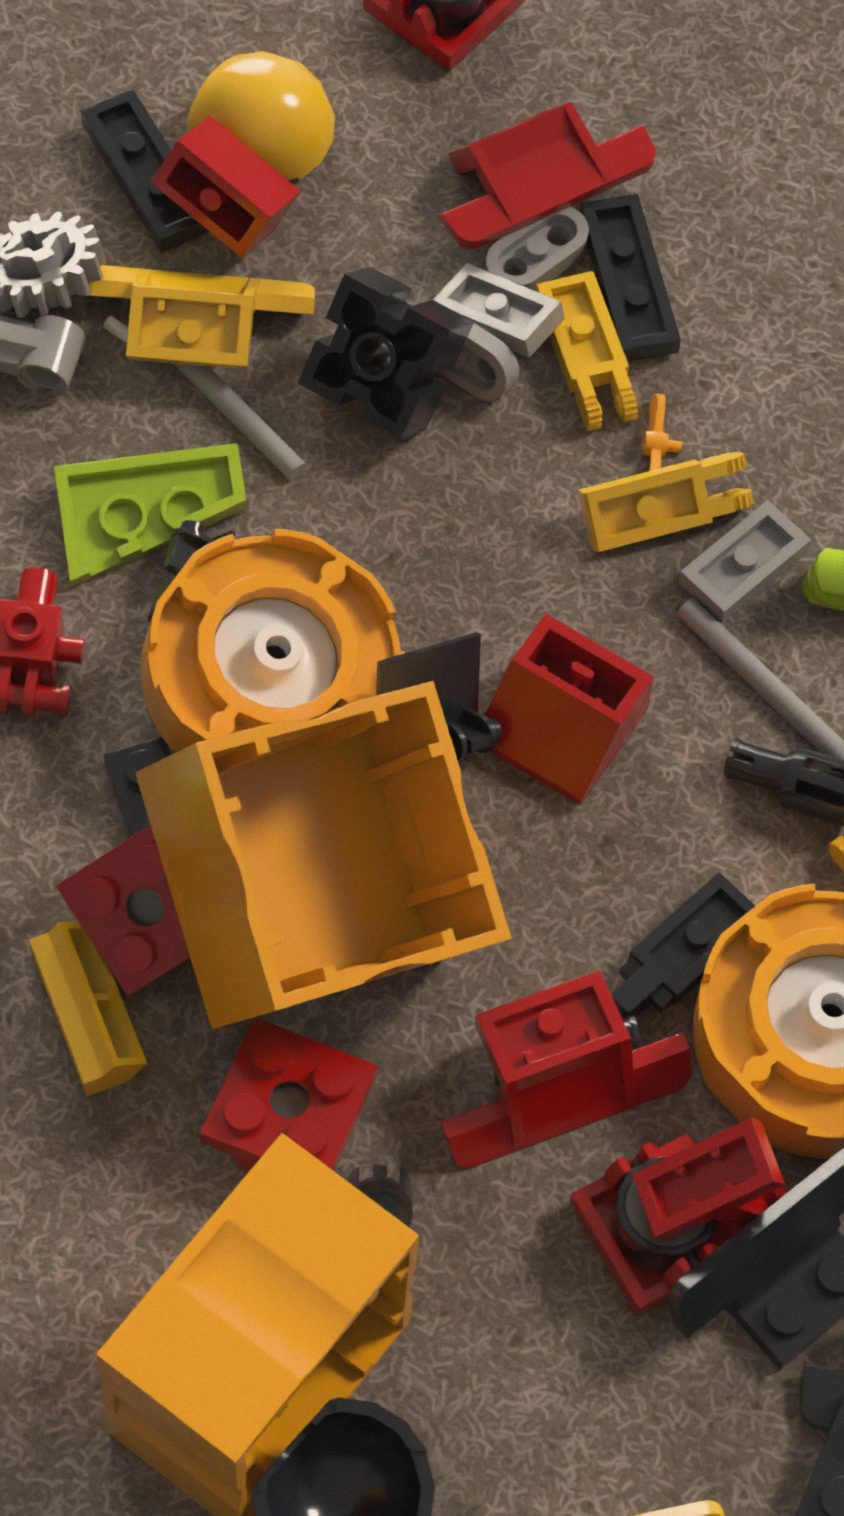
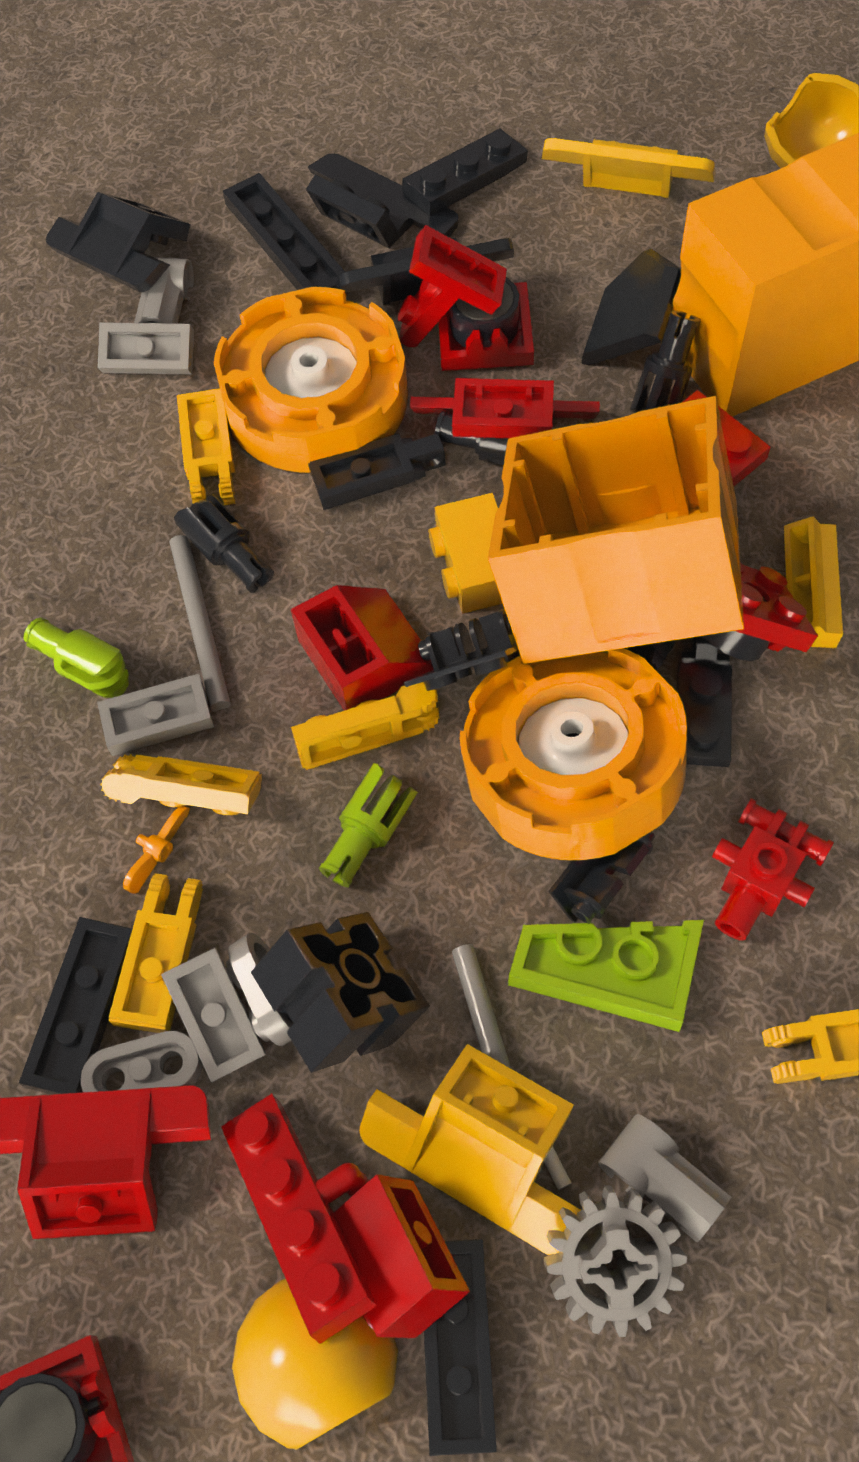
camera: 145 degrees left, 0 degrees up
(326, 186) = (299, 1217): none -> red plate
(453, 538) = (364, 827): none -> lime arm
(471, 1315) = (633, 308): none -> black tile
(509, 630) = (366, 726): none -> yellow hinge
(530, 888) = (464, 540): none -> yellow brick

